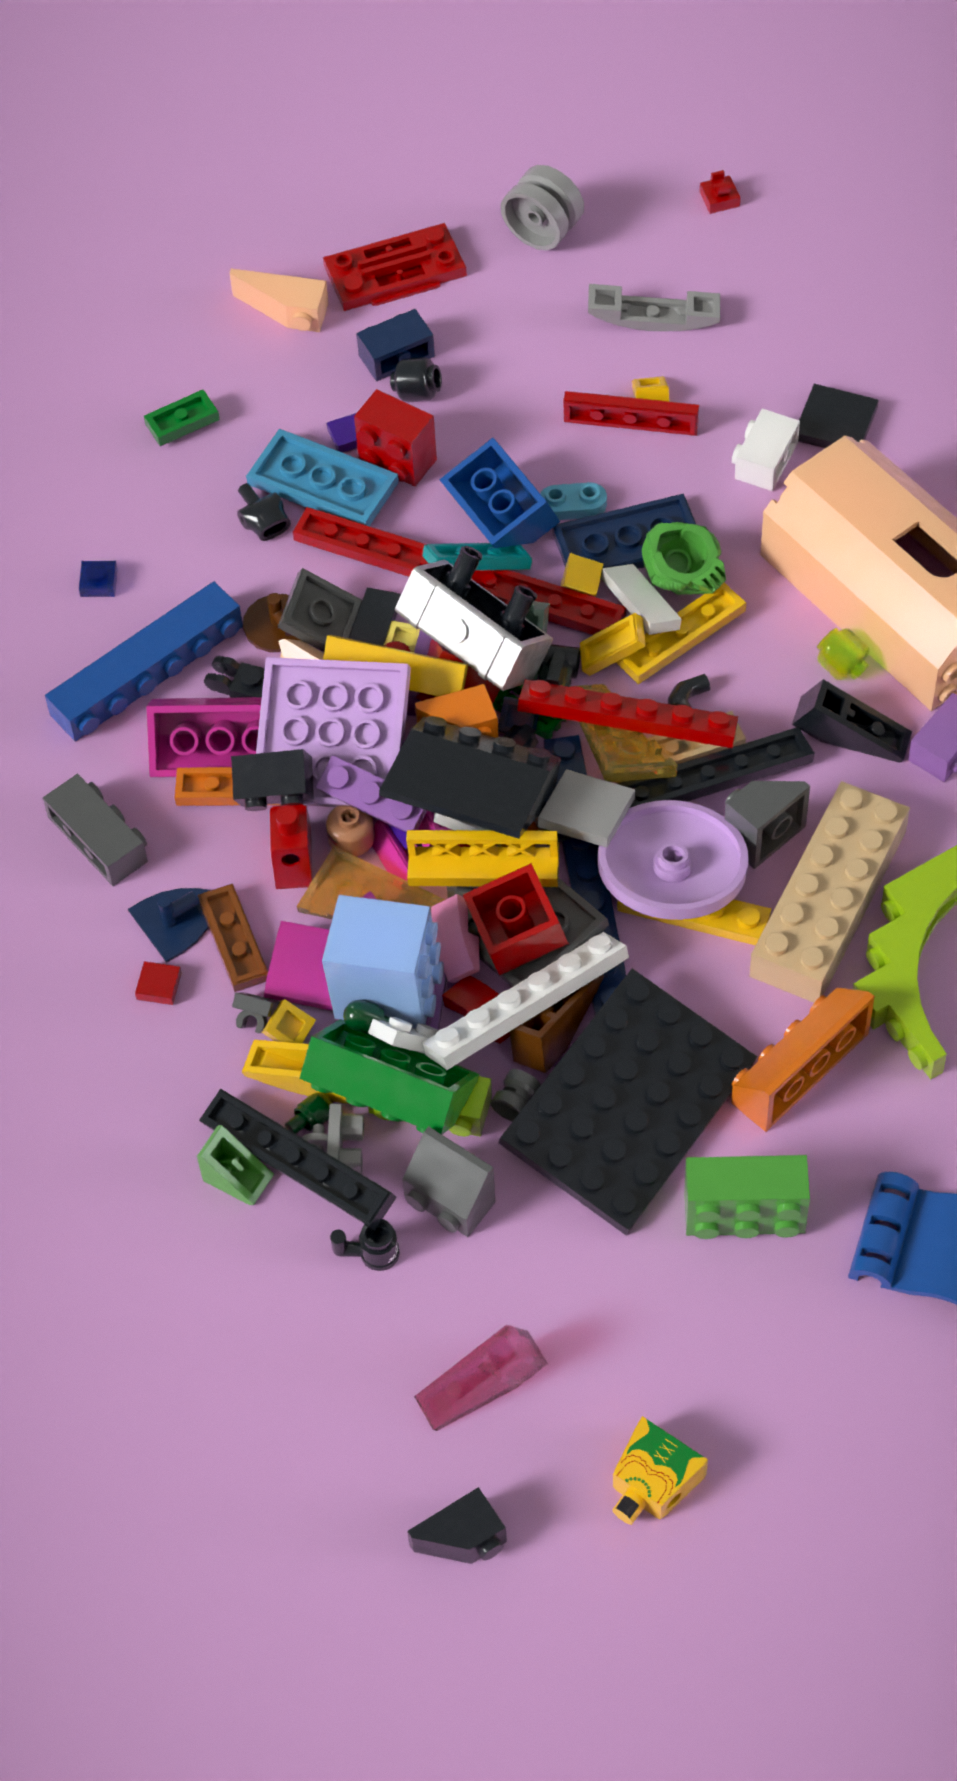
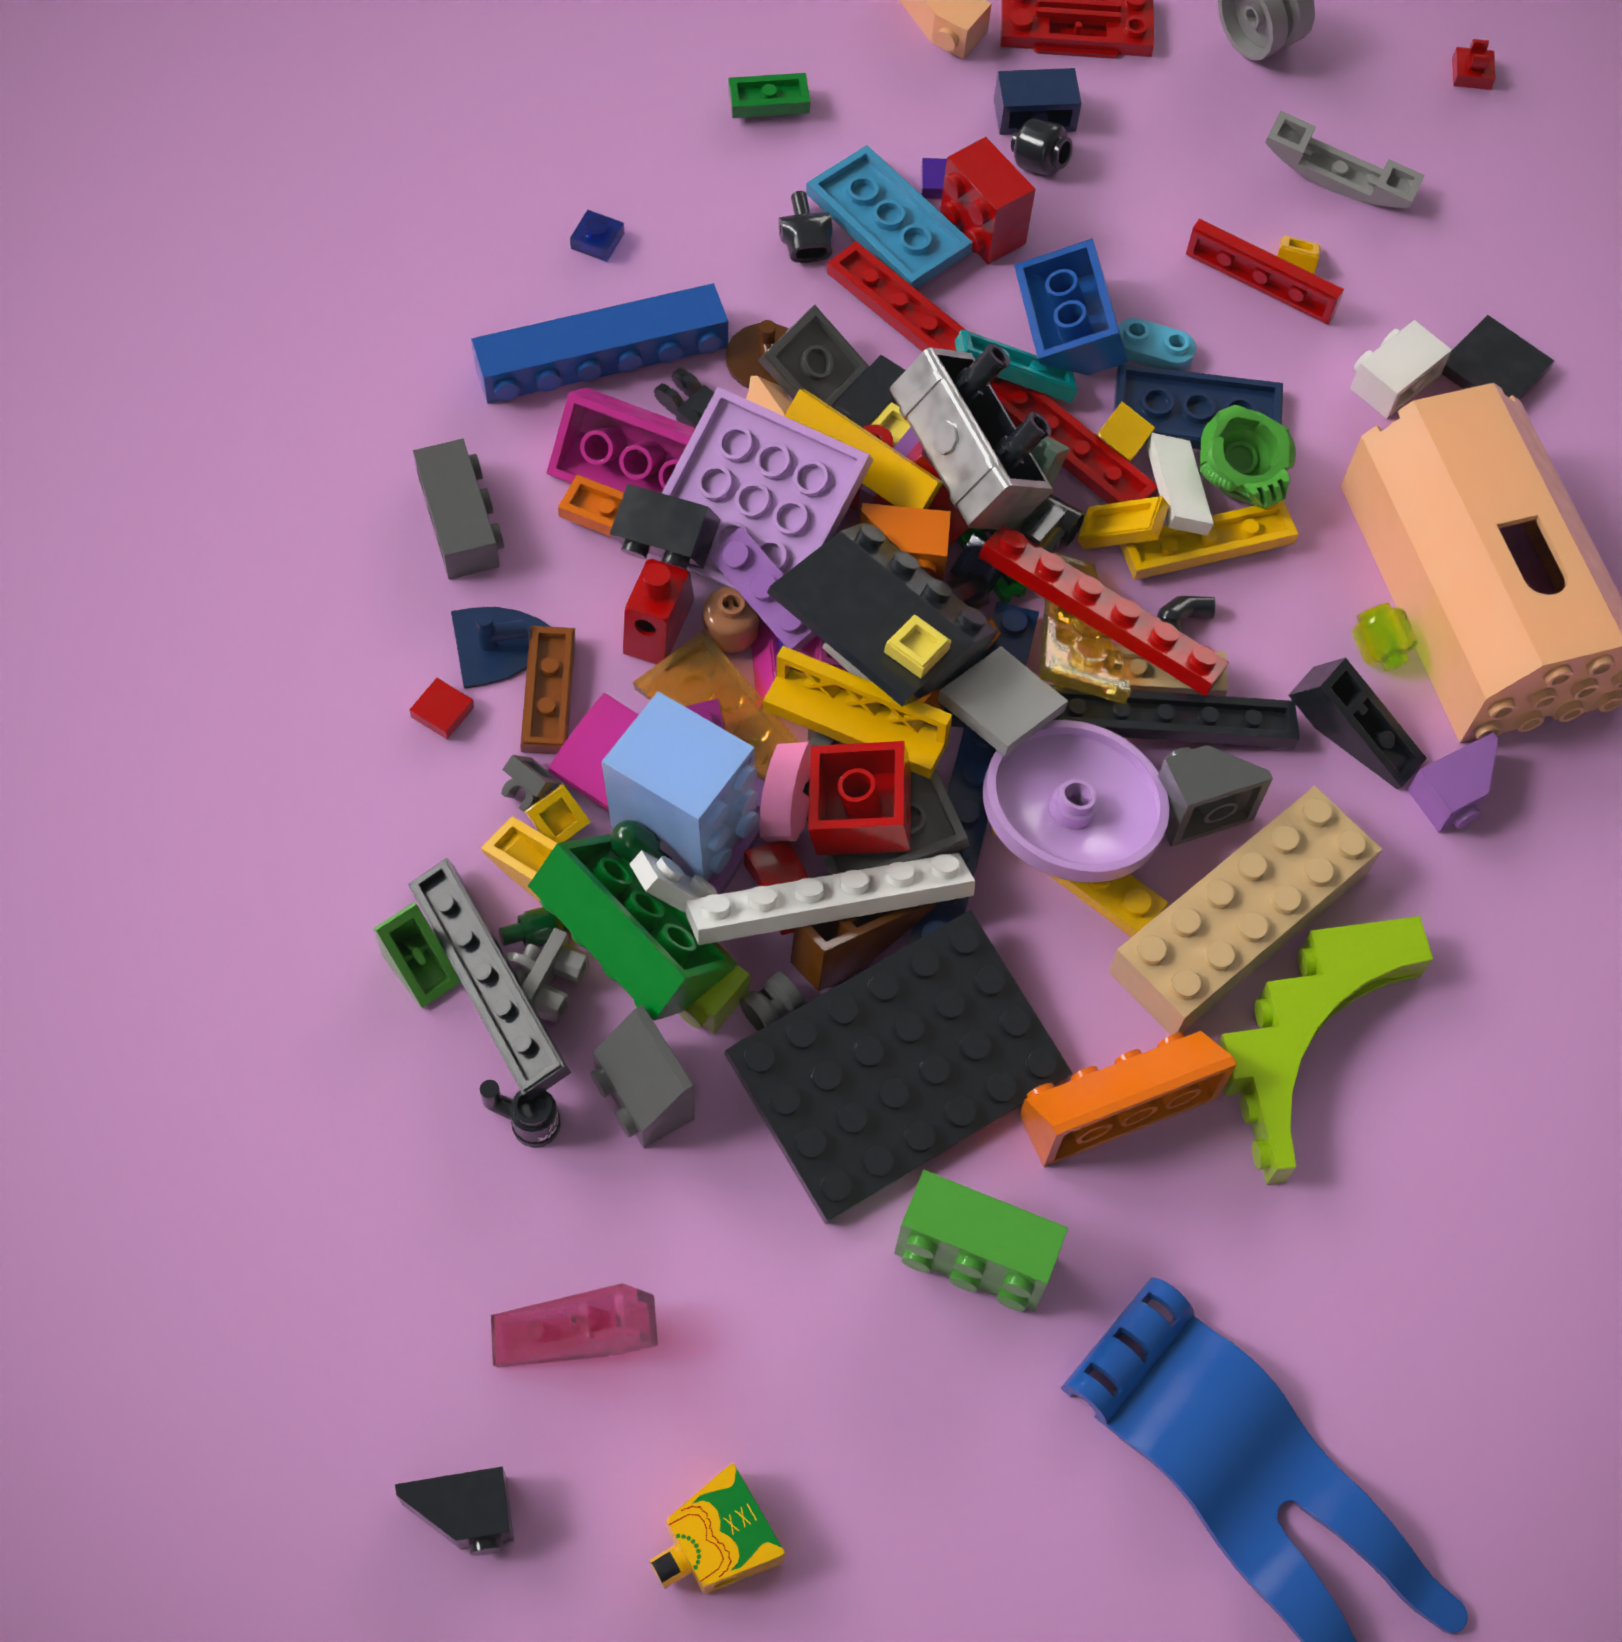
camera: 15 degrees right, 5 degrees up
(510, 790) = (917, 646): none -> light yellow tile

